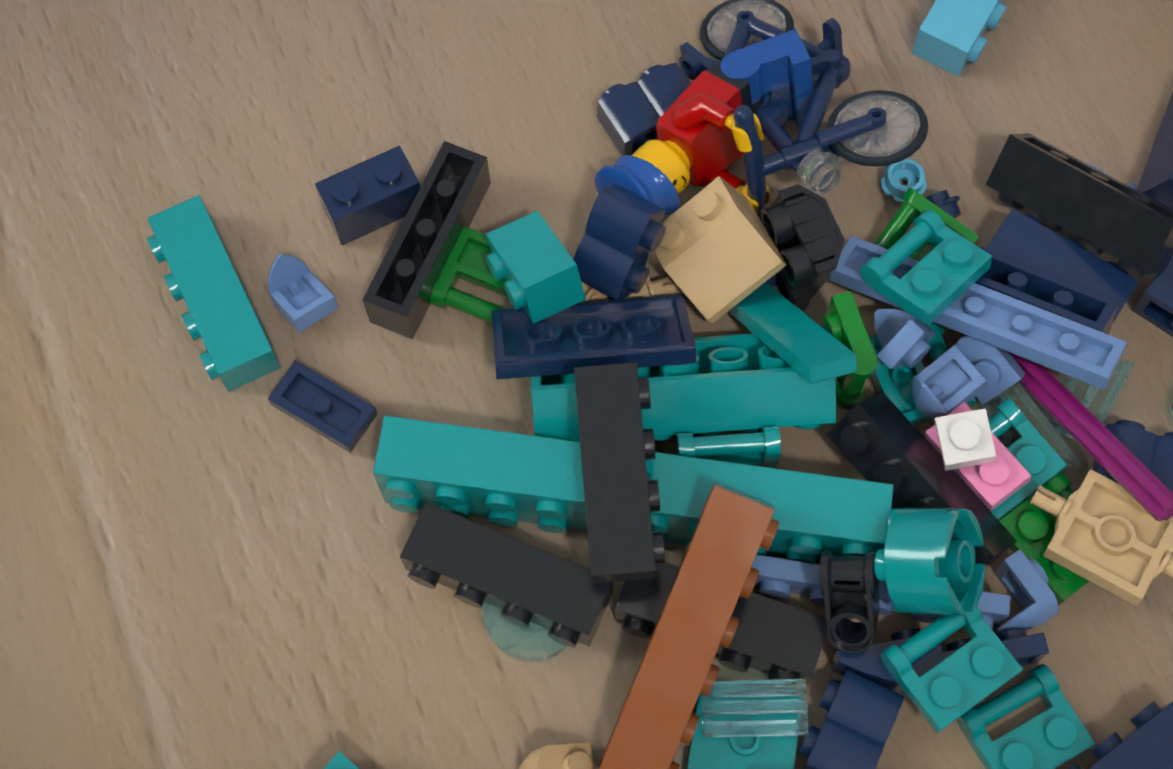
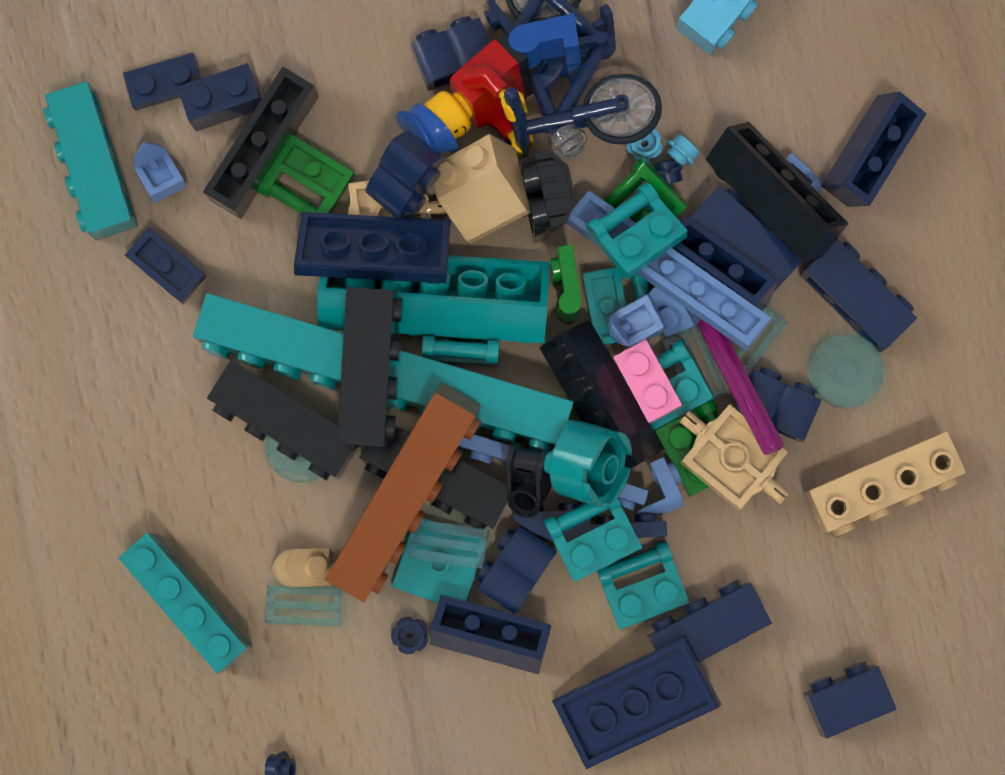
camera: 10 degrees right, 15 degrees up
(288, 192) = (159, 81): none -> dark blue plate
(534, 267) = (337, 185): teal brick -> none
(794, 336) = (524, 271): teal tile -> none
(901, 337) = (609, 281): medium blue plate -> none
(954, 179) = (682, 150): none -> medium azure plate
(965, 439) = (637, 371): white plate -> none

